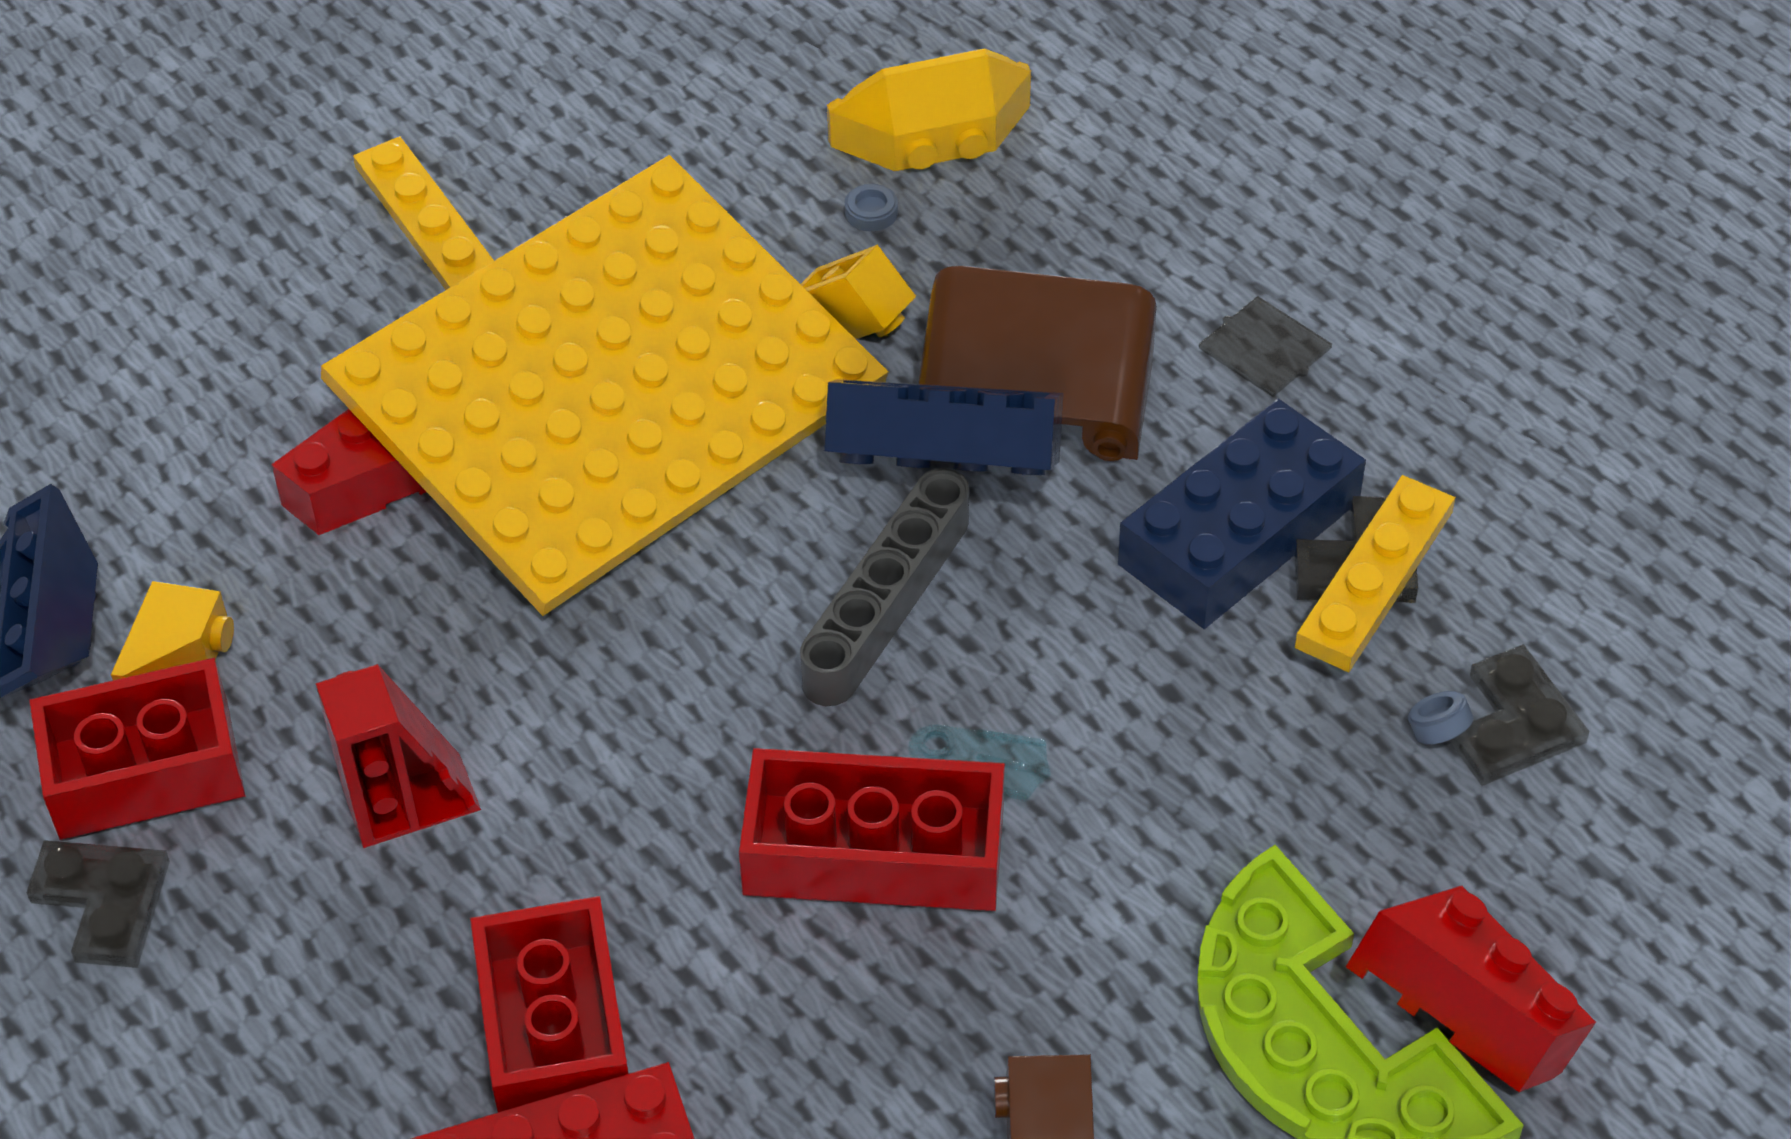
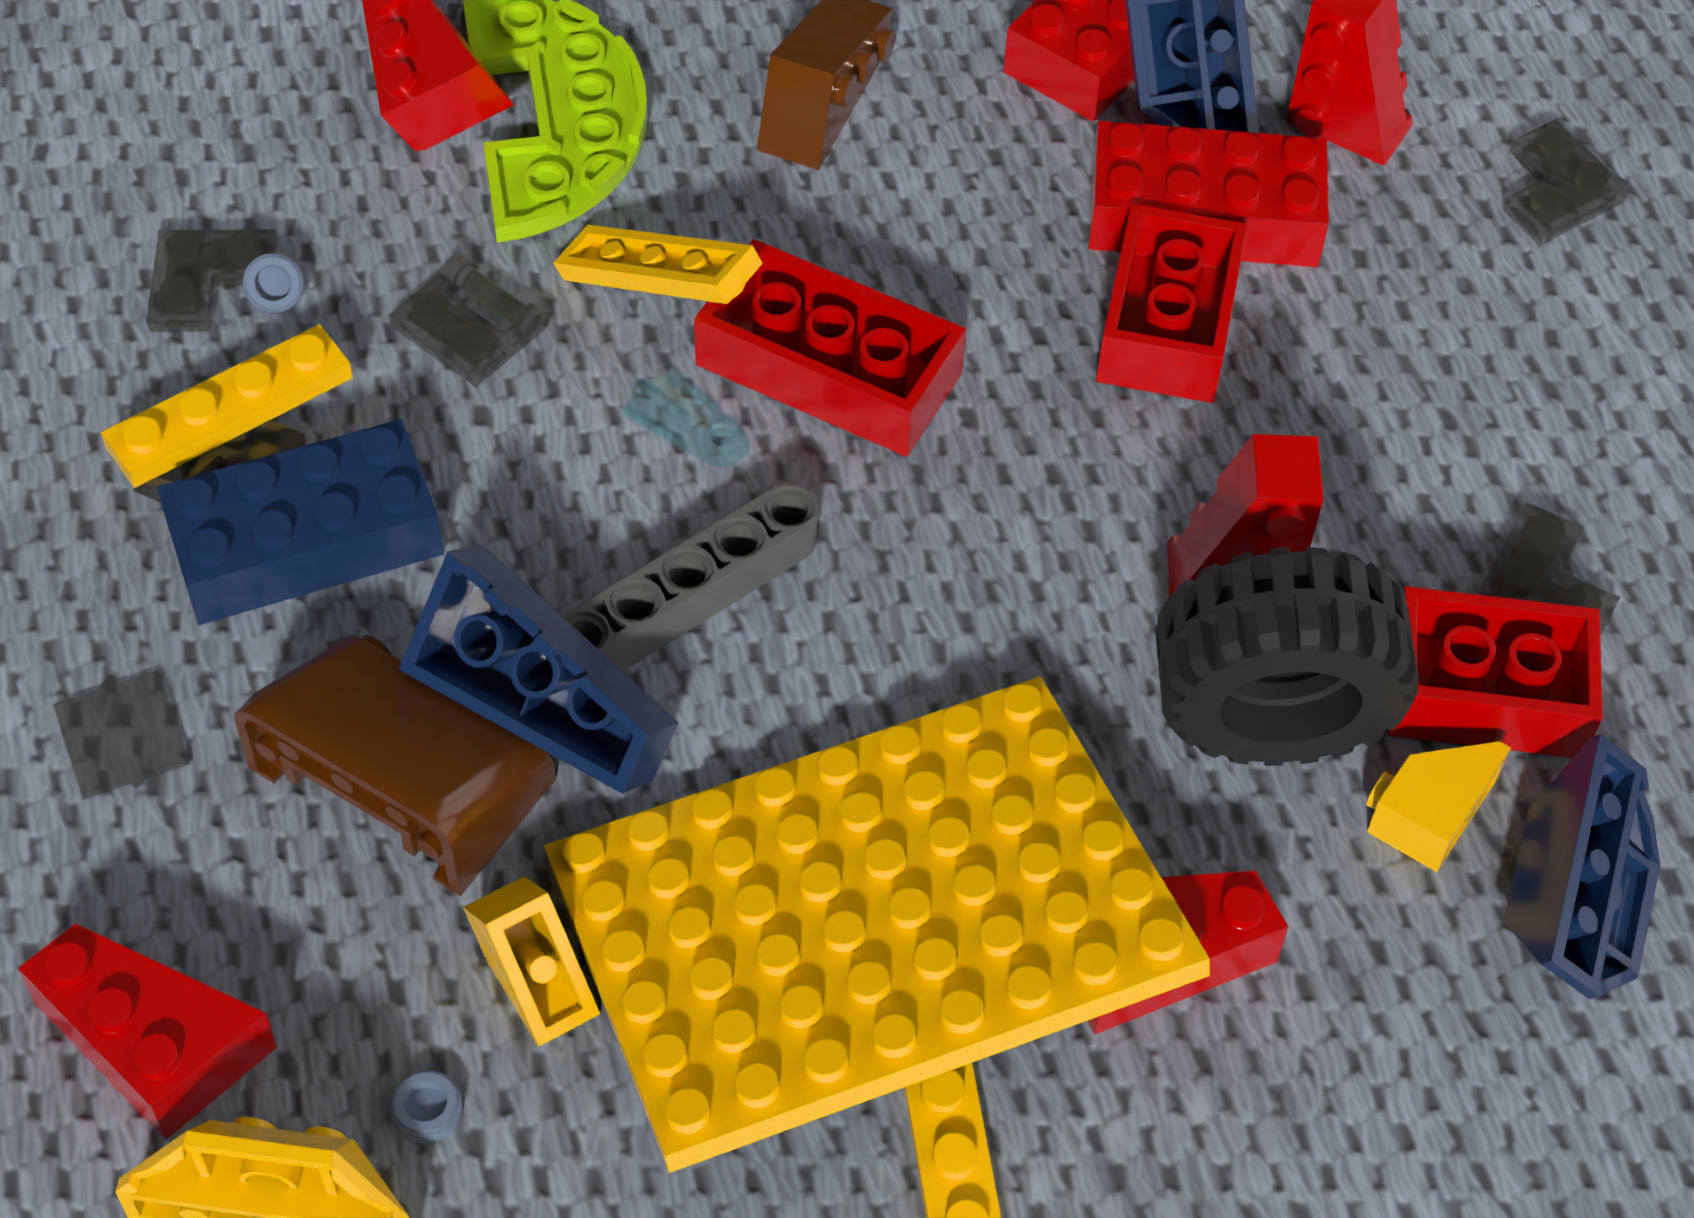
camera: 160 degrees left, 5 degrees up
(304, 569) = (1286, 657): none -> black tyre
(1079, 821) = (658, 263): none -> yellow plate
(1090, 163) = (146, 1026): none -> red wedge
(1245, 750) = (458, 333): none -> clear smoke plate

